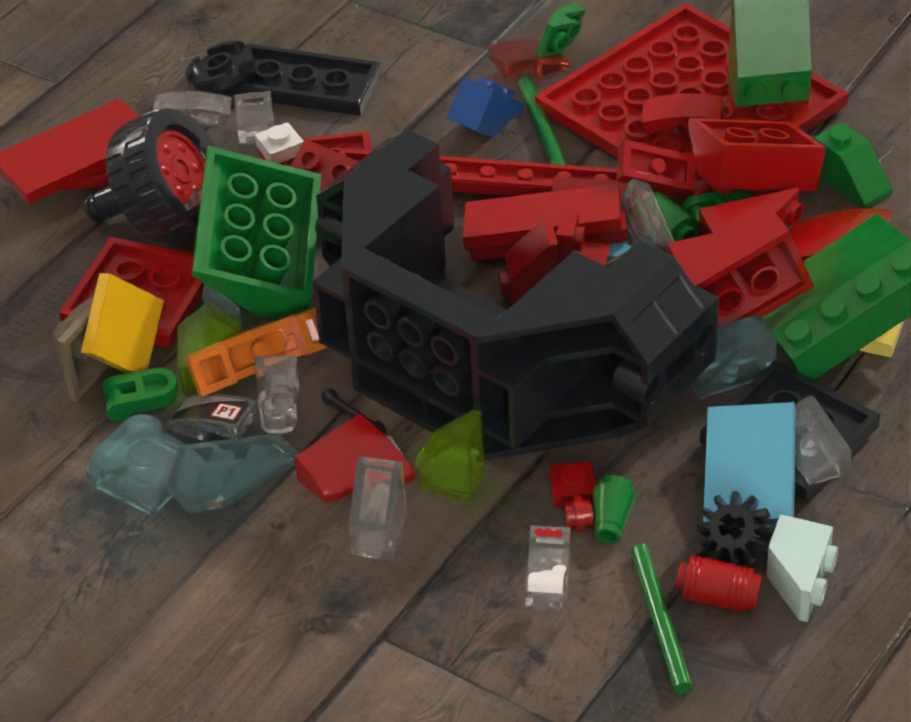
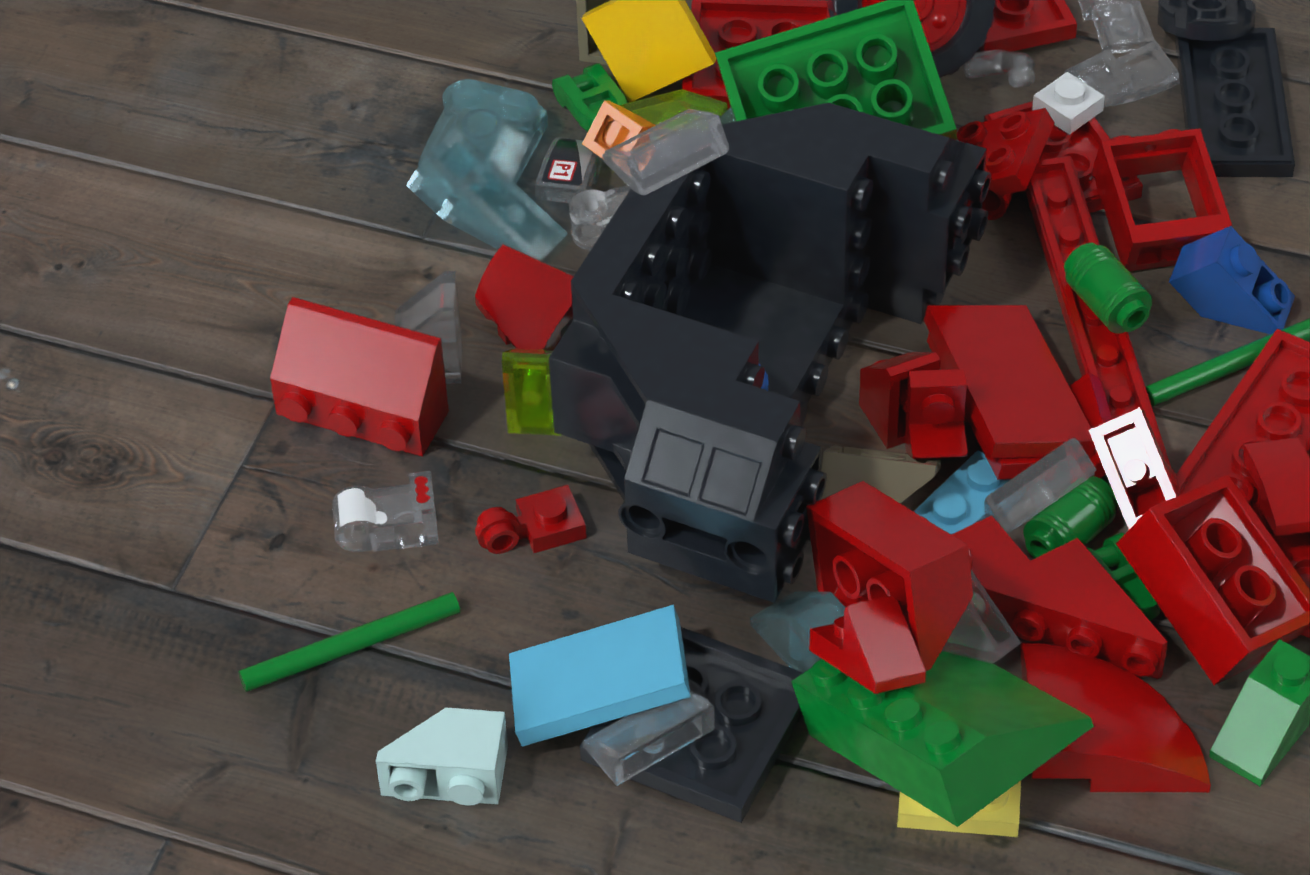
camera: 75 degrees right, 5 degrees up
(361, 262) = (668, 150): none -> clear slope
(399, 99) = (1171, 150): none -> red window
(411, 559) = (359, 377): none -> slope
(483, 150) = (1107, 288): none -> green head
(612, 506) = (507, 558): green cone -> none
(719, 584) = (401, 682): red head -> none
(744, 515) = (480, 672): black gear -> none
(810, 294) = (871, 646): none -> red slope

